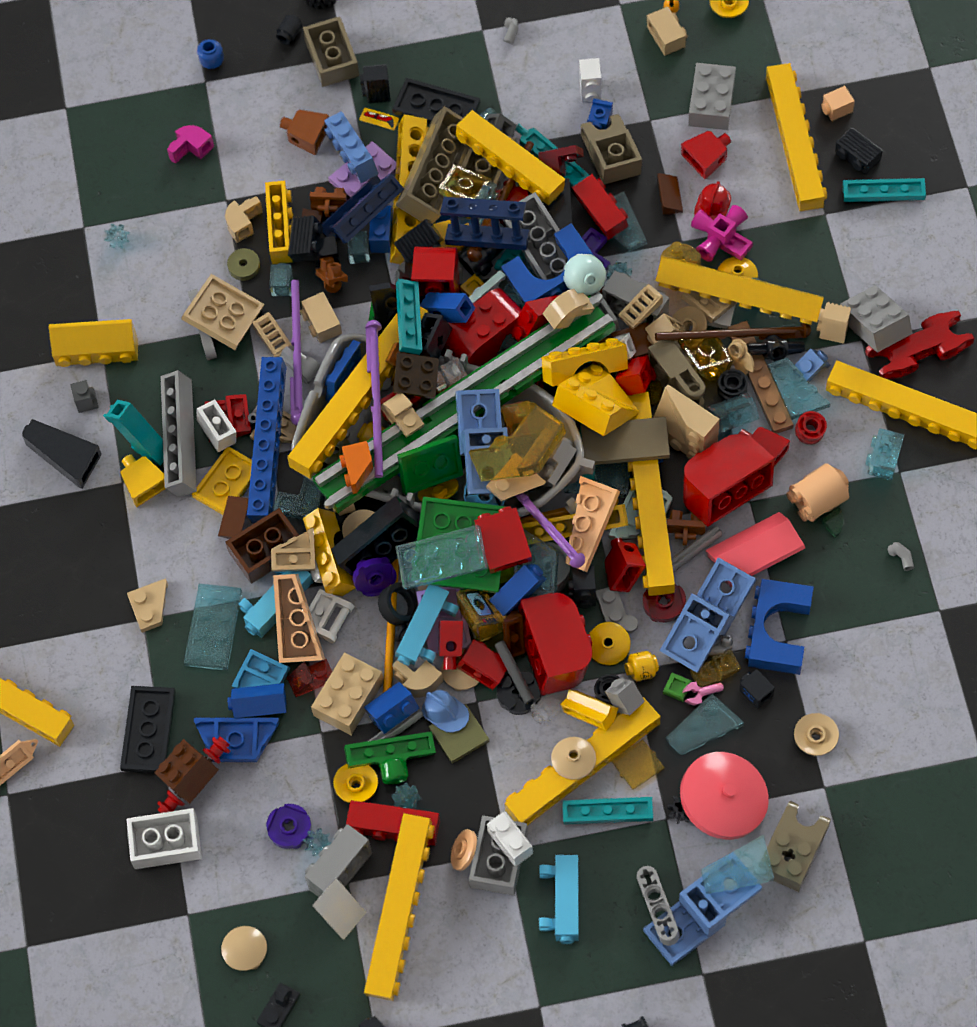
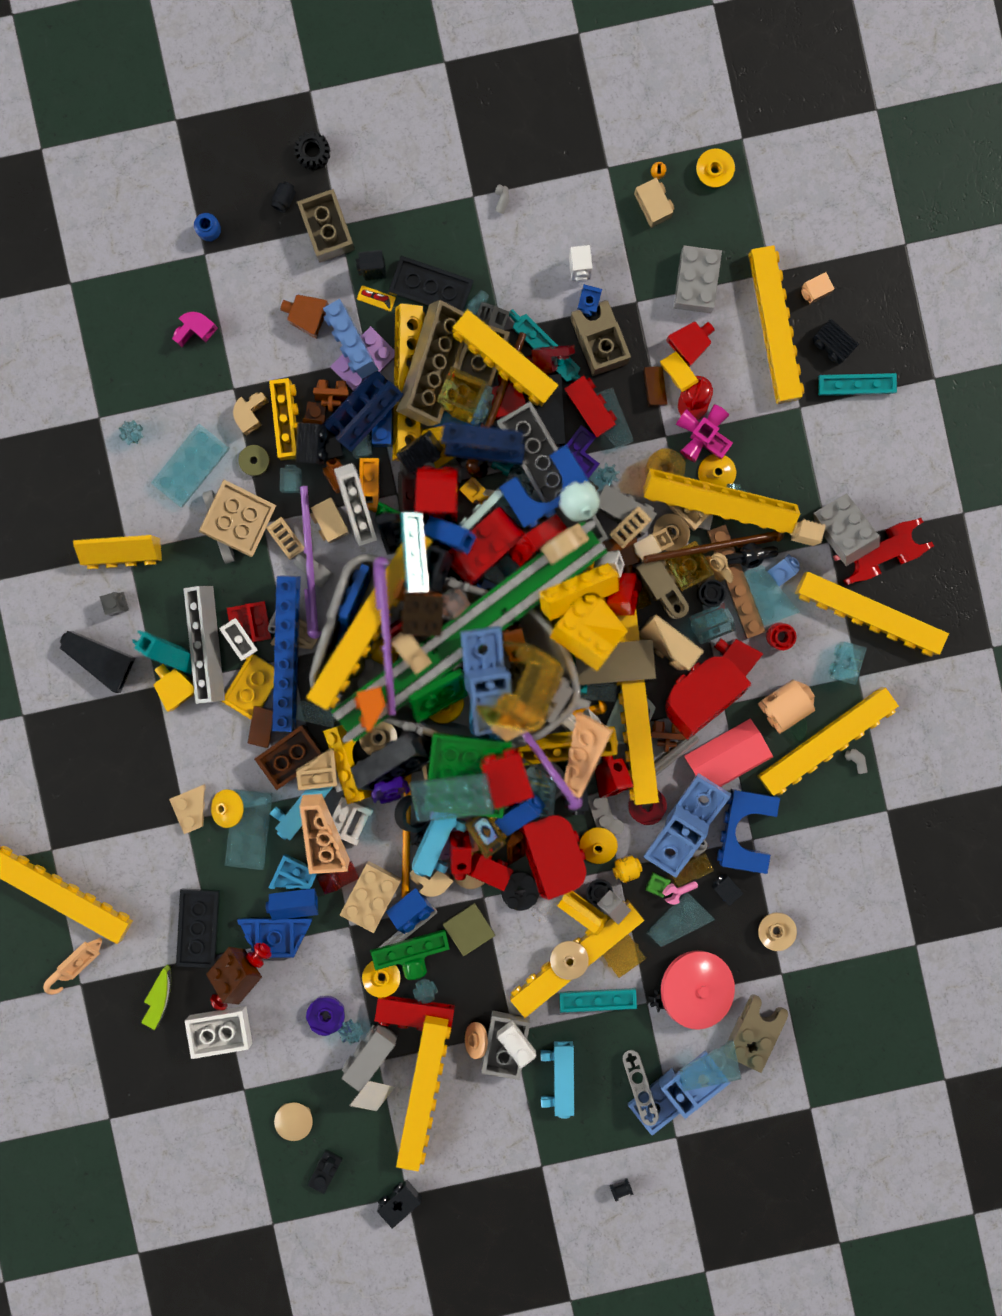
camera: 10 degrees left, 25 degrees up
(96, 805) = (158, 999): none -> lime slope
(176, 267) = (190, 465): none -> clear light blue plate
(190, 602) = (232, 806): none -> yellow dish
(348, 292) = (355, 504): none -> white brick
(363, 278) = (370, 480): none -> light orange plate
(445, 711) = (456, 911): medium blue piece -> none
(514, 672) = (516, 880): dark grey piece -> none
(694, 177) = (679, 371): none -> yellow slope
(867, 533) = (827, 741): none -> yellow brick

